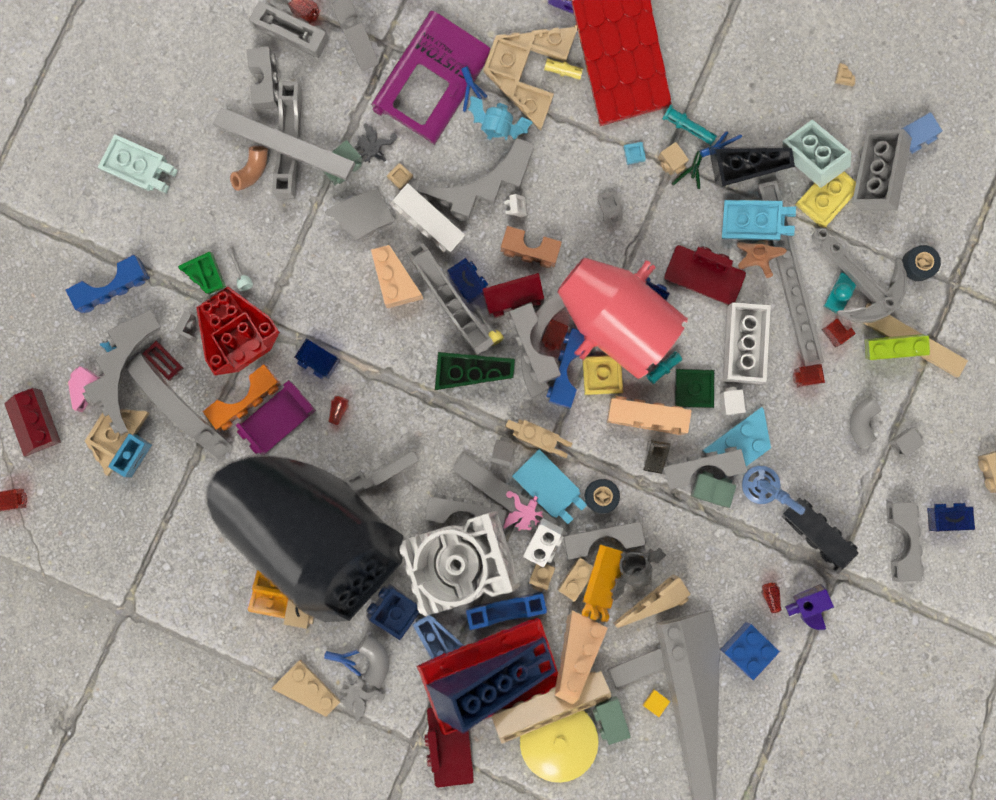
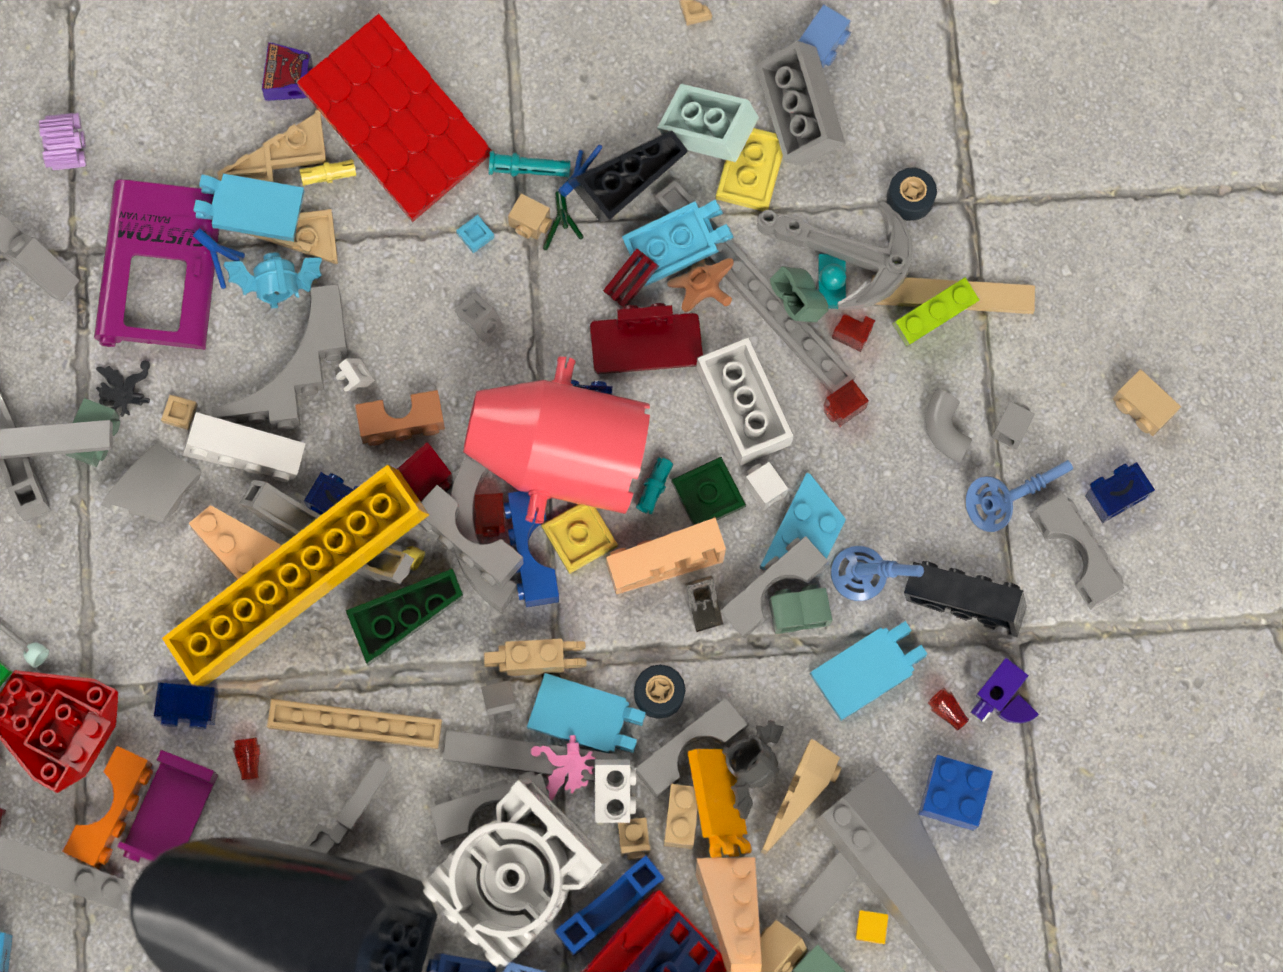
camera: 30 degrees left, 10 degrees down
(410, 421) = (354, 724): none -> tan tile
(419, 316) = (295, 576): none -> yellow brick
(505, 67) = (251, 206): none -> medium azure tile
(708, 225) = (622, 273): none -> dark red tile
(734, 547) = (866, 670): none -> medium azure tile
(816, 292) = (799, 294): none -> sand green brick
(877, 487) = (1004, 502): none -> medium blue dish

